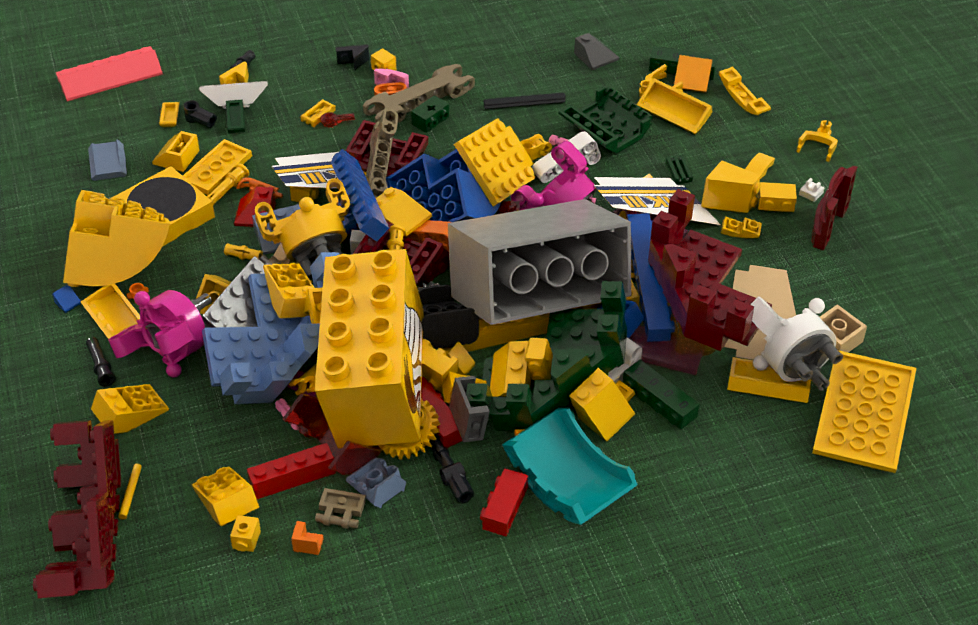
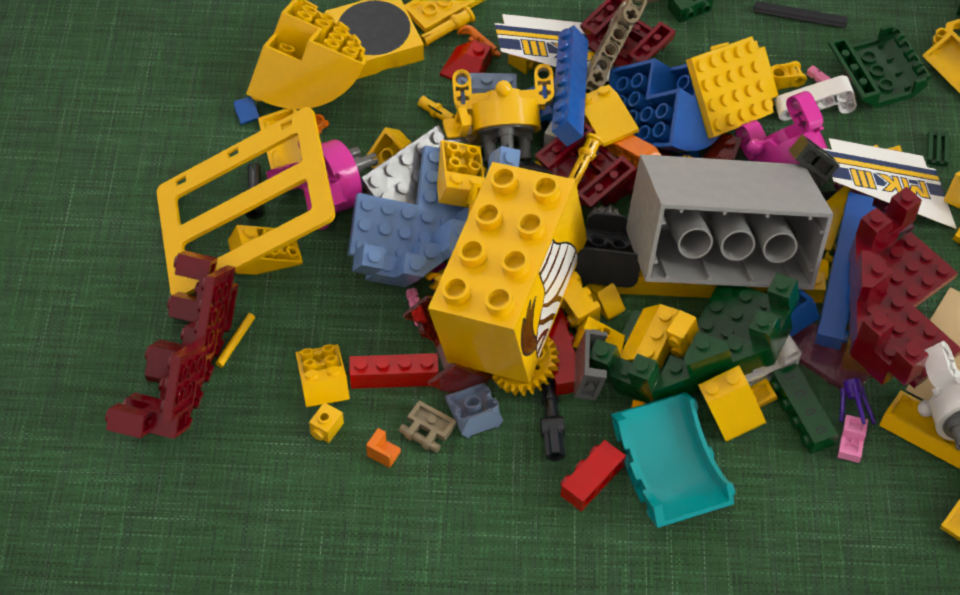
camera: 20 degrees right, 10 degrees up
(155, 315) = (309, 170): none -> yellow door
(274, 251) = (458, 126): none -> yellow bracket
(591, 191) = (814, 157): none -> pearl dark grey brick
(696, 367) = (855, 390): none -> dark purple plant
(710, 406) = (852, 439): none -> bright pink slope

